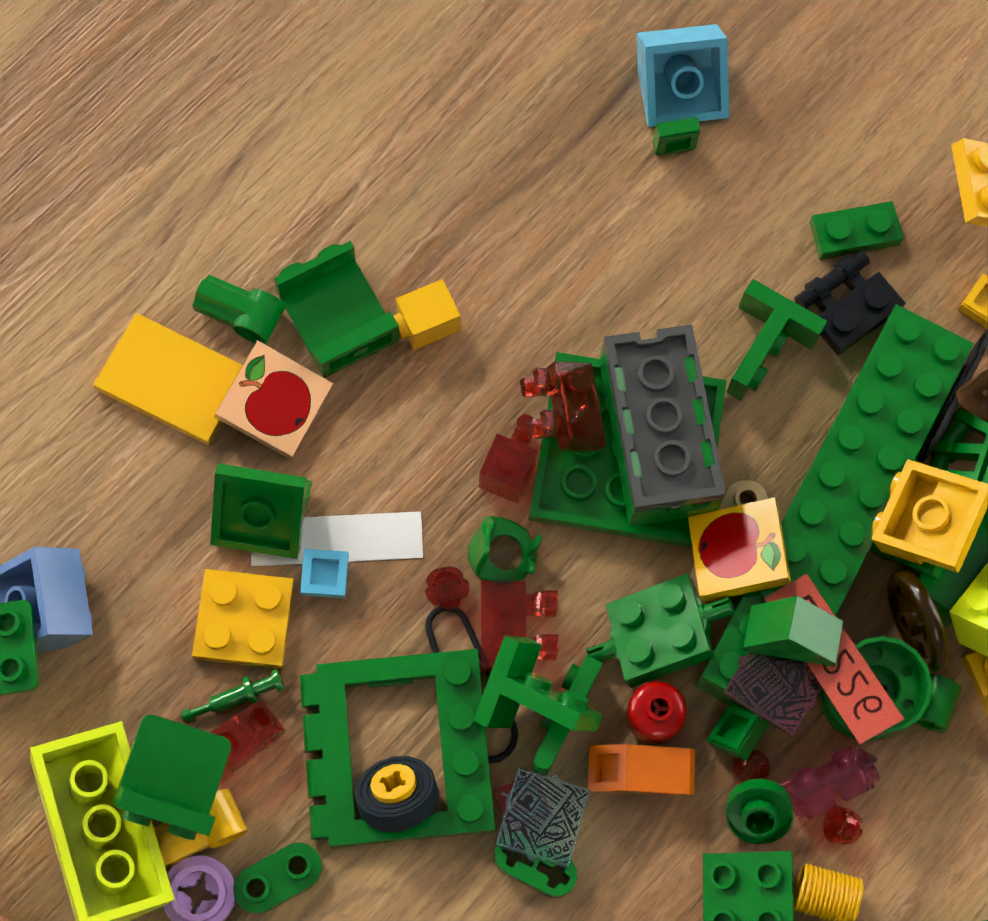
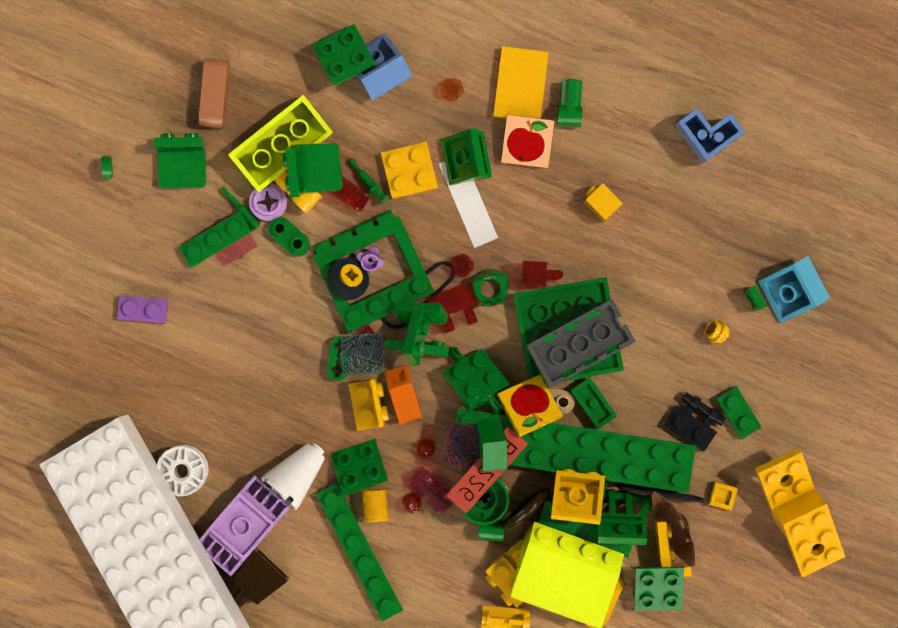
camera: 70 degrees right, 15 degrees up
(127, 484) = (451, 83): none -> clear orange plate
(324, 573) = (446, 202): medium azure plate -> none
(335, 309) = (589, 153): green panel -> none
(384, 117) = (708, 140): none -> medium blue brick
(388, 742) = (373, 265): none -> medium lavender plate
(575, 406) = (577, 297): clear red plate -> none
(638, 837) = (367, 404): none -> yellow bracket
(648, 725) = (437, 400): red head -> none
(710, 214) = (716, 331): none -> yellow plate
(737, 732) = (438, 435): green tile -> none
(759, 811) = (403, 459): green plate -> none
(765, 450) = (593, 403): none -> green plate
(782, 320) = (656, 387): green bracket -> none

